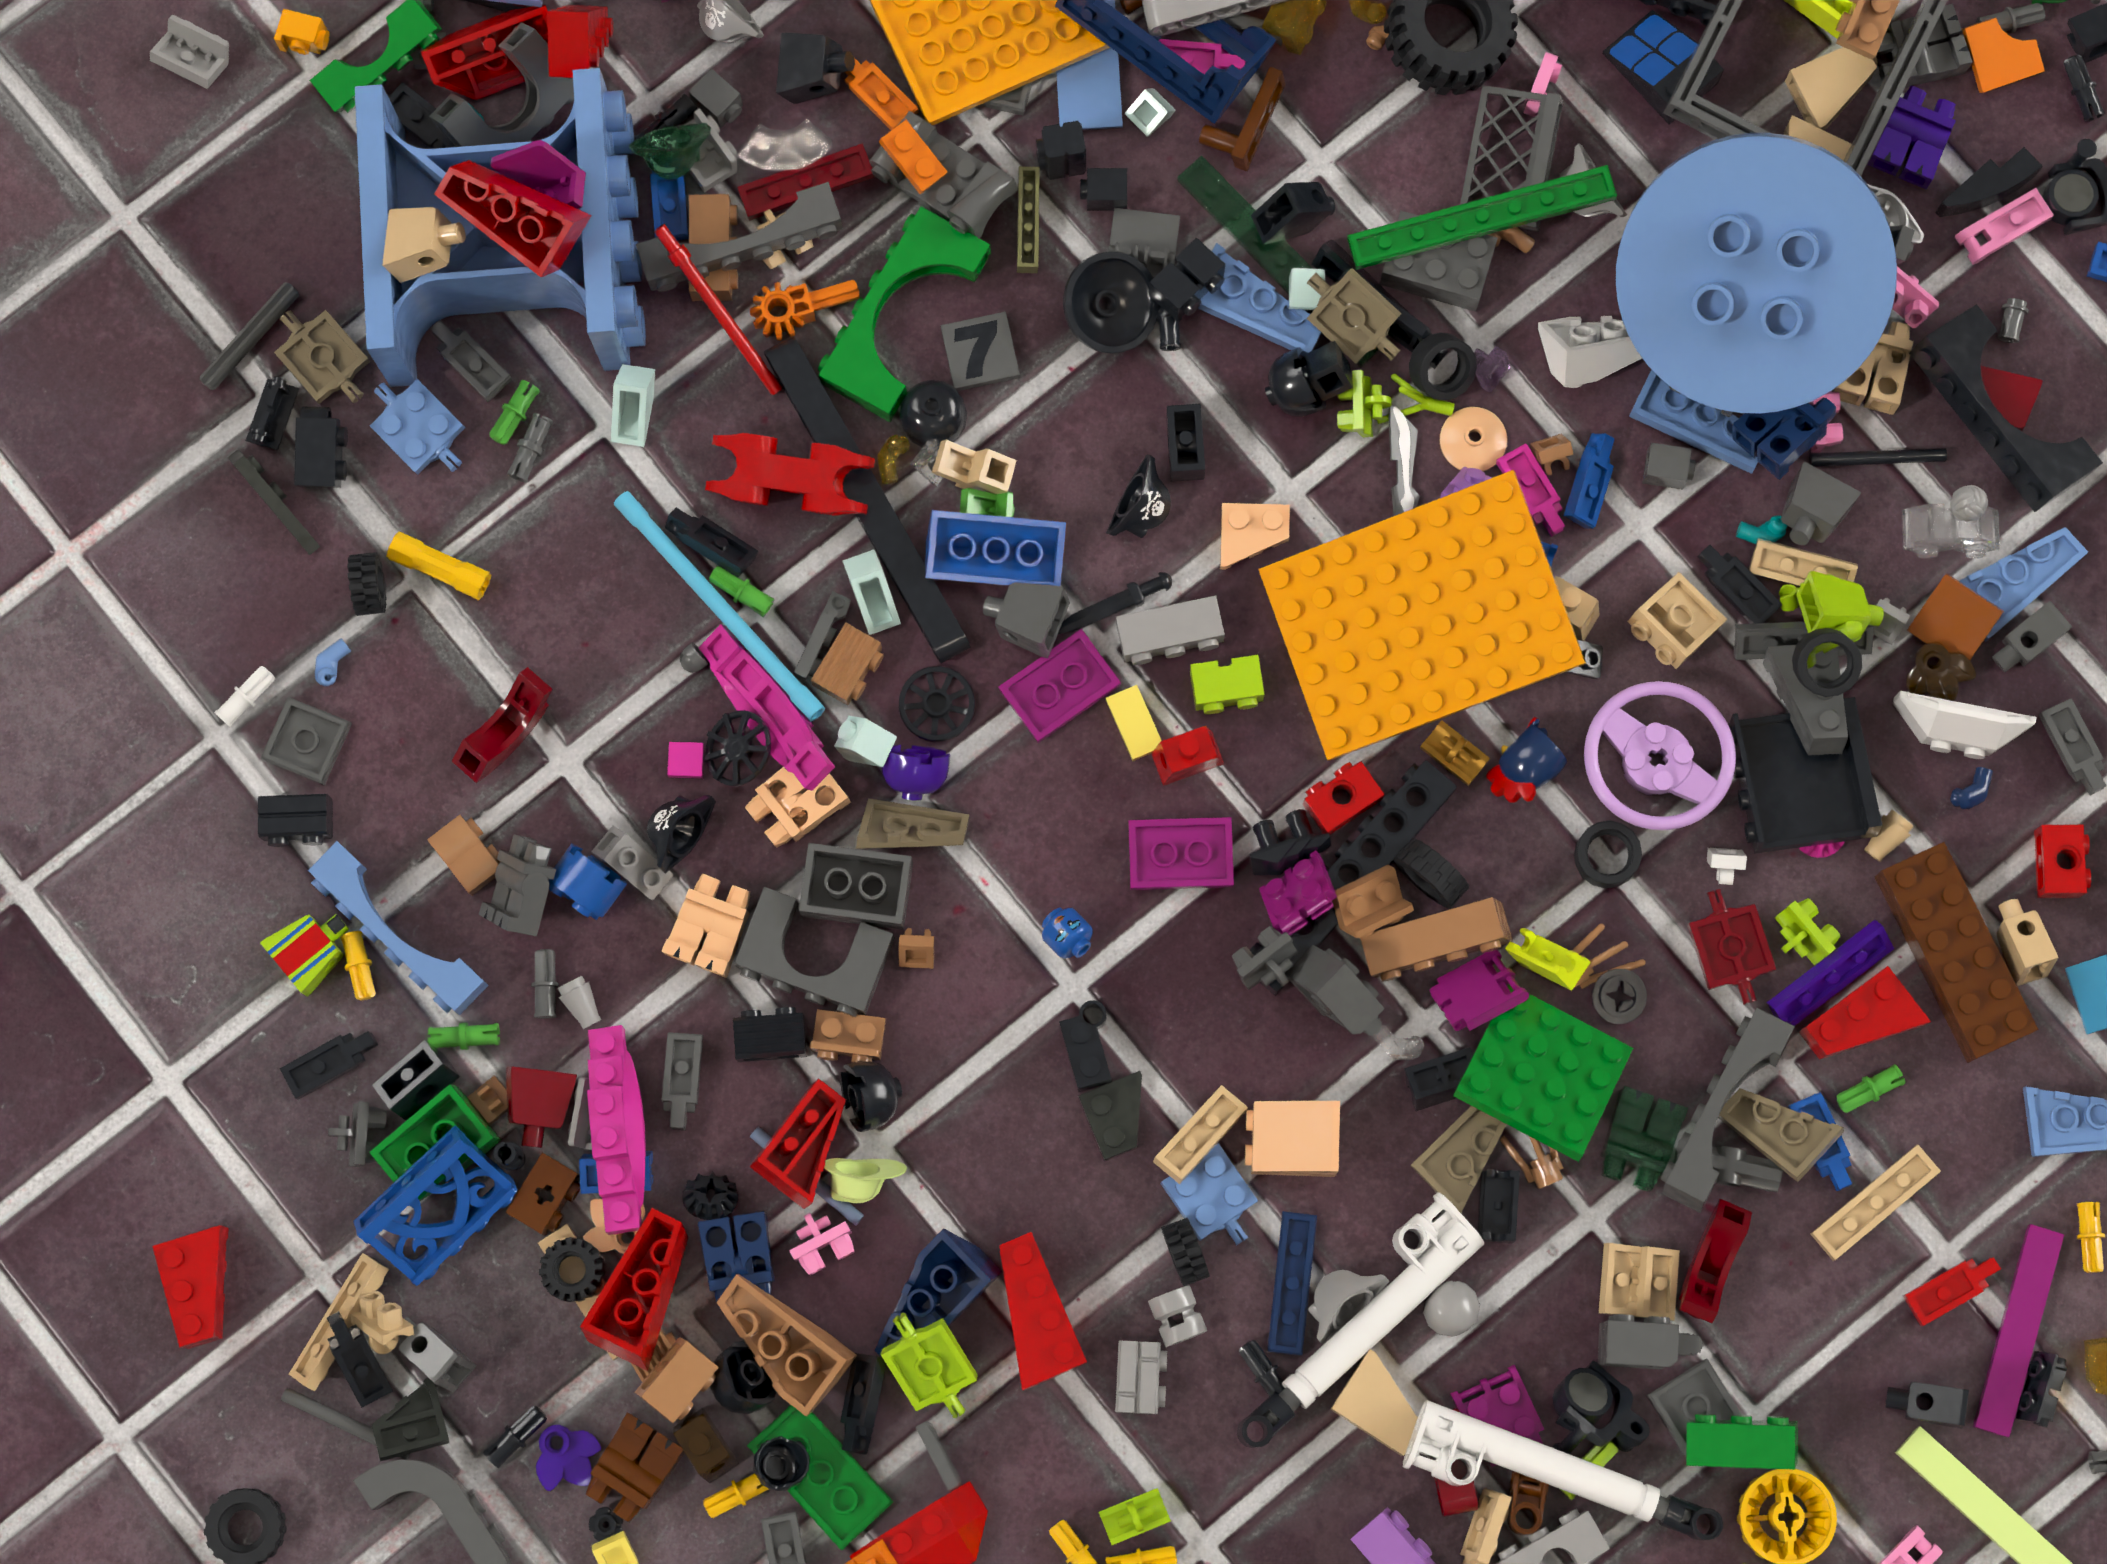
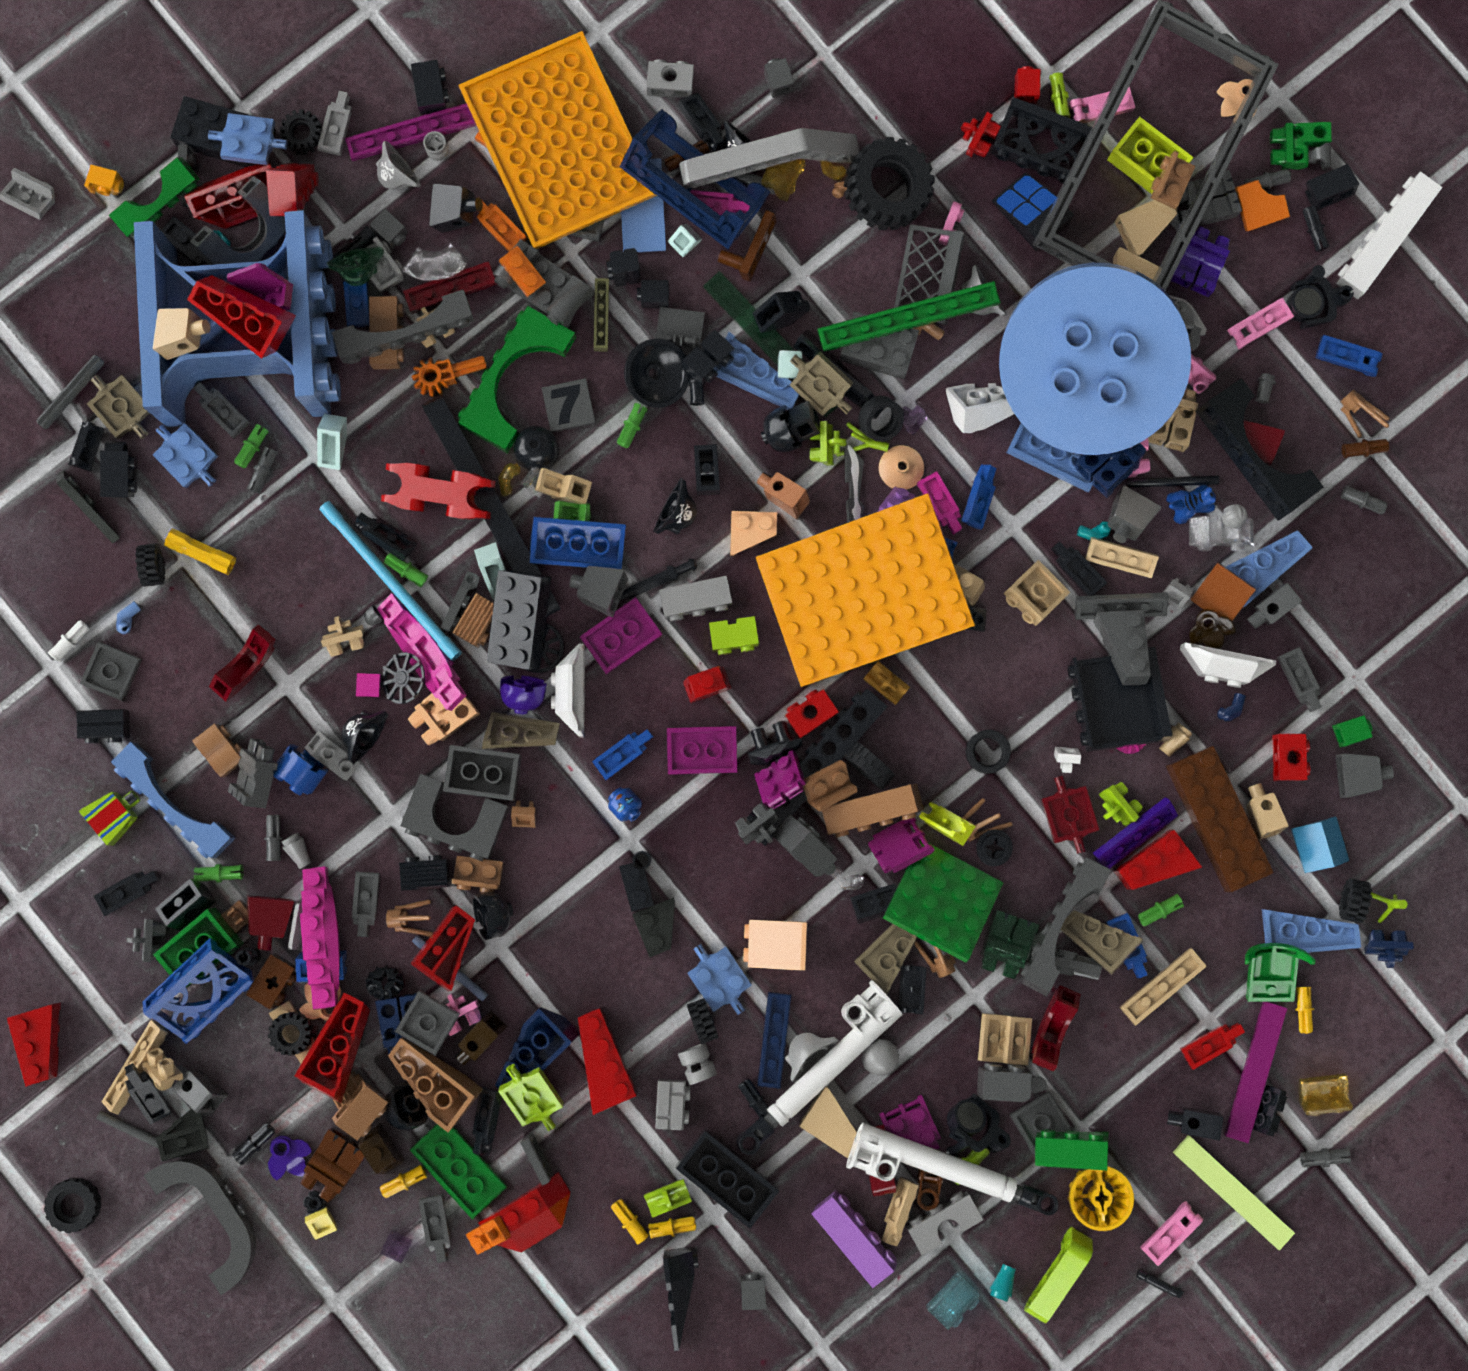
camera: 10 degrees left, 5 degrees up
(358, 965) = (146, 825): yellow axle -> none
(634, 694) = (333, 640): none -> tan hips
(680, 257) = (361, 341): red bar -> none
(707, 915) = (385, 794): light nougat hips -> none
(731, 1100) = (398, 918): none -> medium nougat plant
(775, 1252) = (427, 1022): none -> dark grey tile
(781, 1463) = (431, 1164): black hair -> none
(860, 1179) = (486, 970): yellowish green piece -> none
(863, 1268) = (480, 1038): none -> dark brown torso
(864, 741) = (488, 675): light aqua slope -> none
(910, 659) = (519, 619): none -> brick
(985, 765) = (570, 690): none -> white wedge
(1062, 858) = (622, 754): none -> blue hinge
(1073, 380) = (631, 426): none -> bright green axle
(1134, 722) = (671, 660): light yellow tile -> none
(1200, 1134) = (713, 941): tan plate -> none
(1224, 1486) = (727, 1178): none -> black brick
(1301, 476) = (784, 493): none -> nougat torso
(1526, 765) = (934, 691): dark blue piece -> none
(1552, 449) = (954, 475): medium nougat tile -> none
(1637, 741) = (1036, 696): lavender piece -> none
(1668, 466) = (1032, 487): dark grey brick -> none
(1833, 605) = (1141, 589): lime torso -> none
(1848, 677) = (1145, 641): black tyre -> none
(1902, 488) = (1188, 503): none -> blue animal
(1991, 184) = (1252, 294): black slope -> none
(2041, 1178) = (1273, 971): none -> green piece

